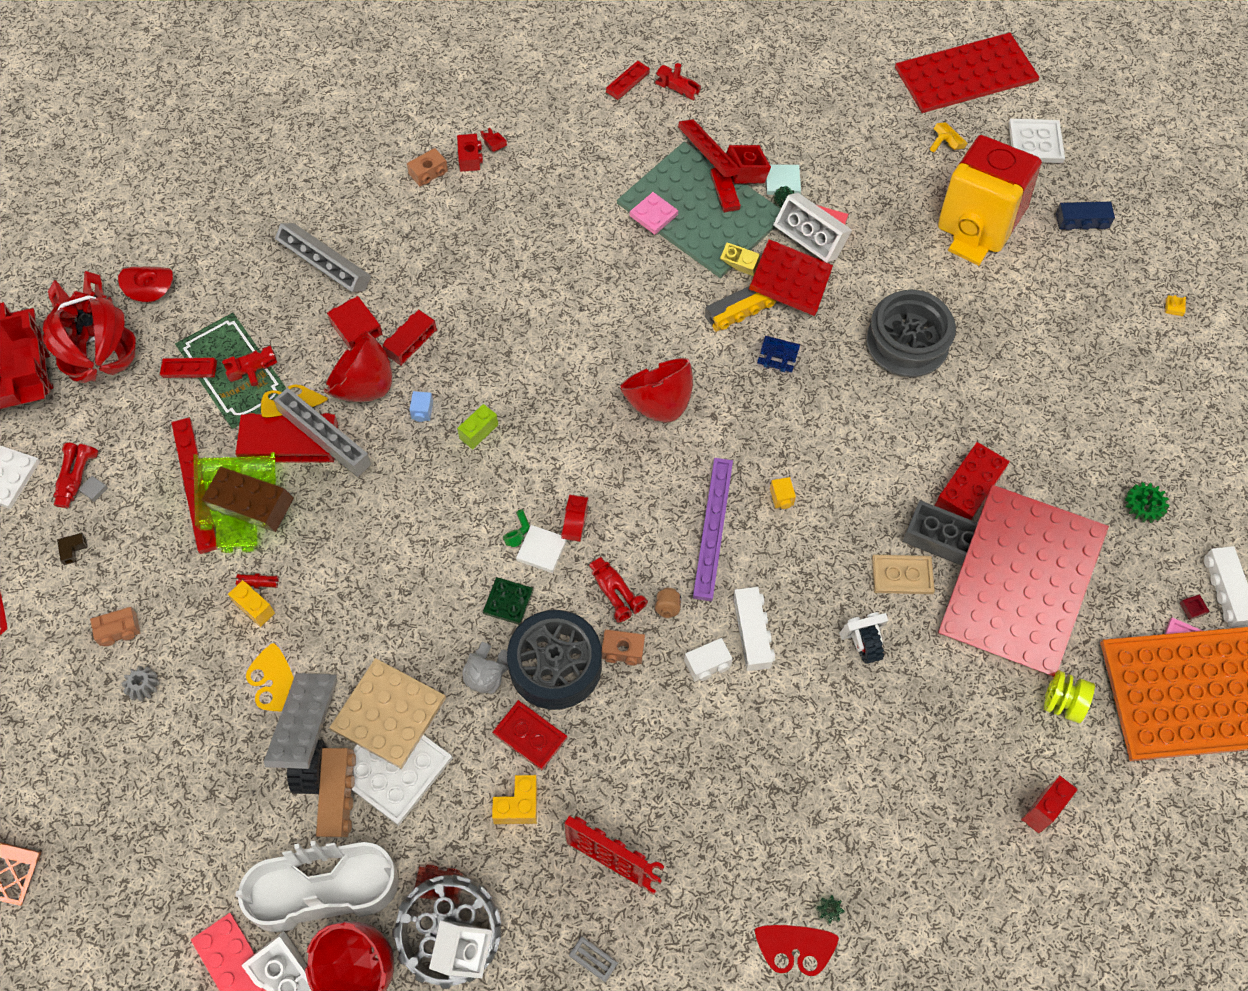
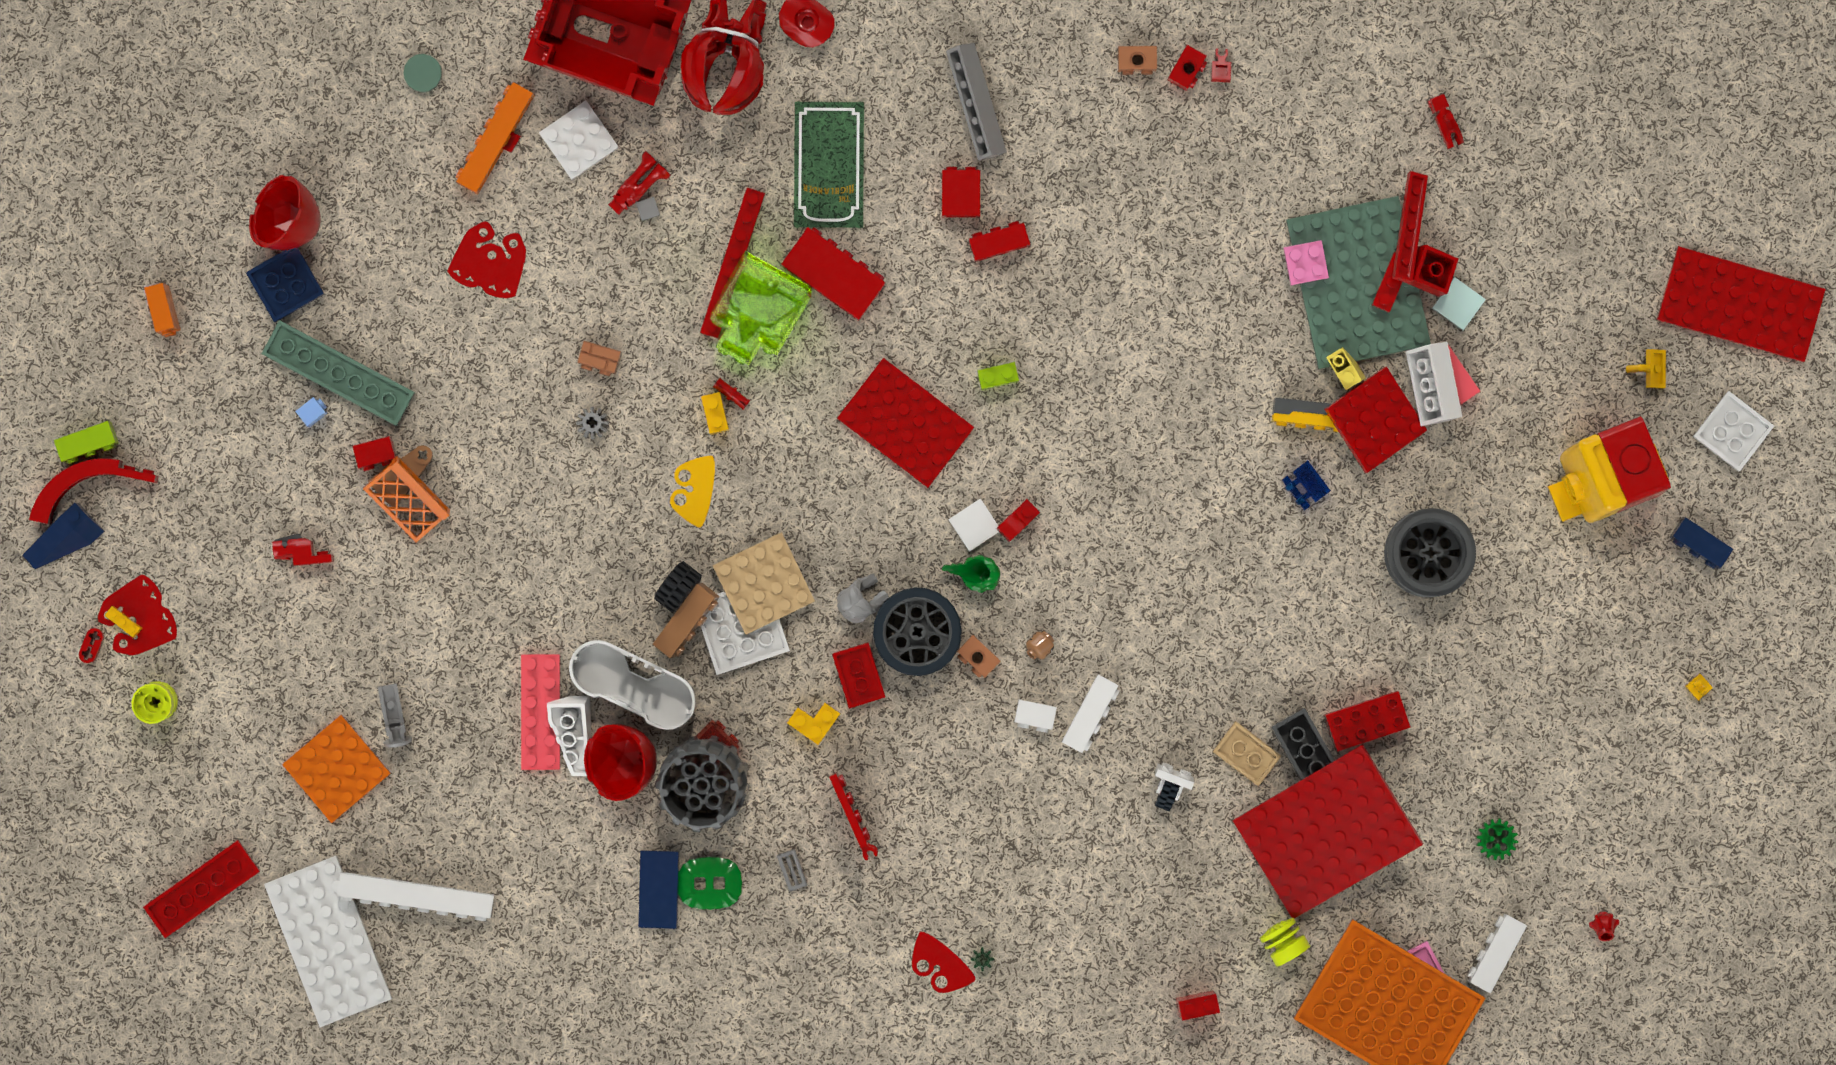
camera: 35 degrees right, 25 degrees up
(68, 546) = (599, 254): dark brown piece -> none
(188, 367) = (791, 141): red plate -> none
(247, 499) = (764, 325): reddish brown brick -> none
(249, 364) = (846, 175): red piece -> none
(301, 721) = (695, 549): light grey plate -> none
(312, 398) = (848, 243): yellow piece -> none
(322, 432) = (862, 300): light grey brick -> none
(361, 372) = (929, 256): red piece -> none
(421, 406) = (963, 321): light blue brick -> none
(426, 510) = (905, 422): none -> red plate
(460, 949) = (700, 809): white slope -> none
(508, 601) = (917, 551): dark green tile -> none
(515, 537) = (959, 500): green plate -> none
(571, 579) = (977, 573): none -> green hair
(608, 581) = (1007, 592): red piece -> none
(627, 80) = (1401, 83): red plate -> none
(661, 392) = (1171, 453): red piece -> none
(713, 530) = (1125, 606): medium lavender plate -> none
(781, 195) = (1441, 327): clear green gear -> none
(782, 493) = (1204, 617): yellow brick -> none
(1194, 607) = (1453, 946): dark red plate -> none

